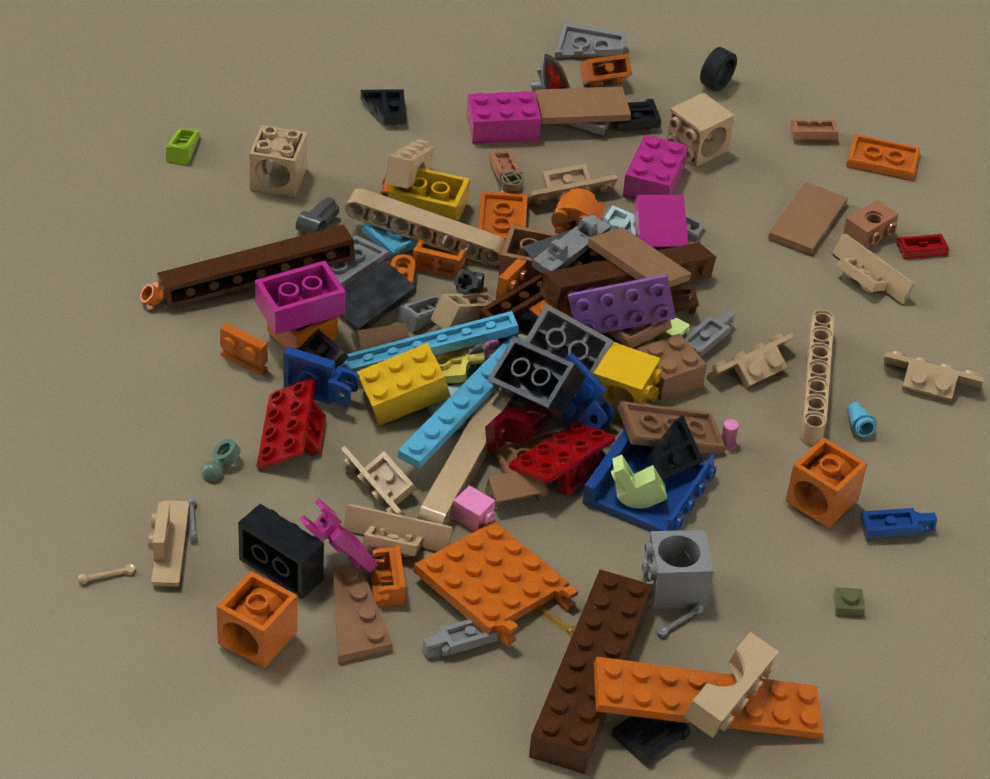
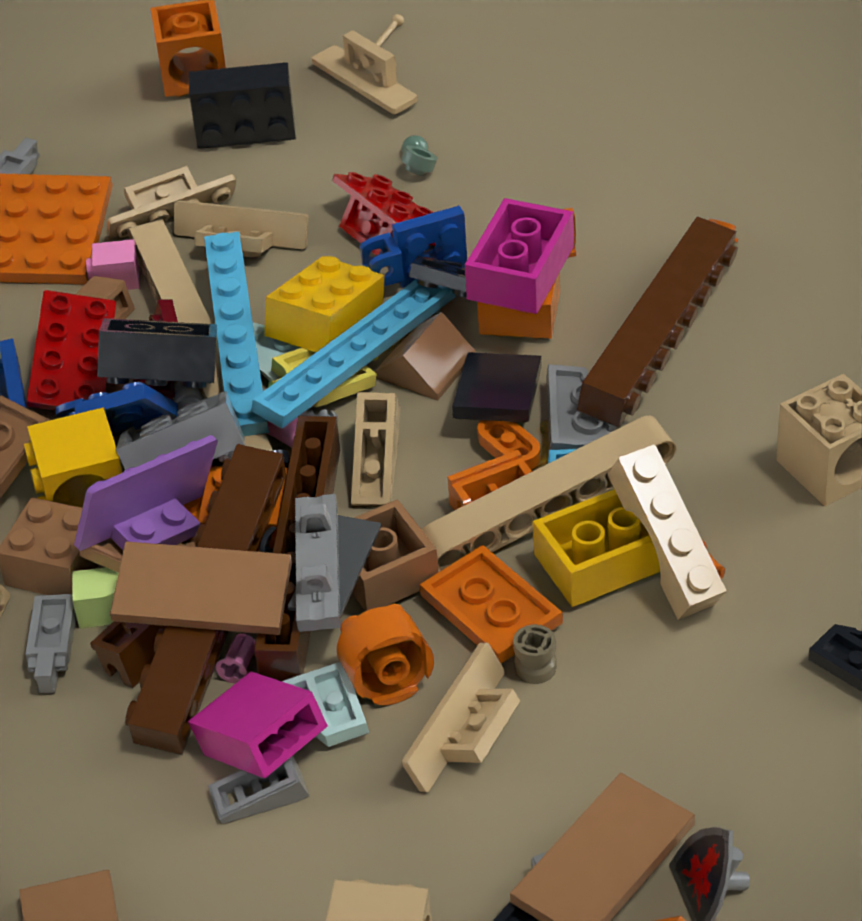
camera: 145 degrees right, 0 degrees up
(192, 503) = (355, 99): light grey hinge -> none
(318, 217) = (695, 428): dark grey piece -> none
(329, 527) = (203, 118): dark pink plate -> none
(357, 616) = (129, 137): medium nougat wing -> none
(388, 577) = (123, 170): orange hinge -> none
(418, 313) = (427, 401): light grey slope -> none
(469, 281) = (414, 480): dark grey piece -> none
(503, 117) = (695, 749): dark pink brick -> none
(503, 162) = (587, 685): nougat plate -> none
(512, 277) = (347, 480): orange plate -> none
(655, 168) = (373, 828): dark pink brick -> none

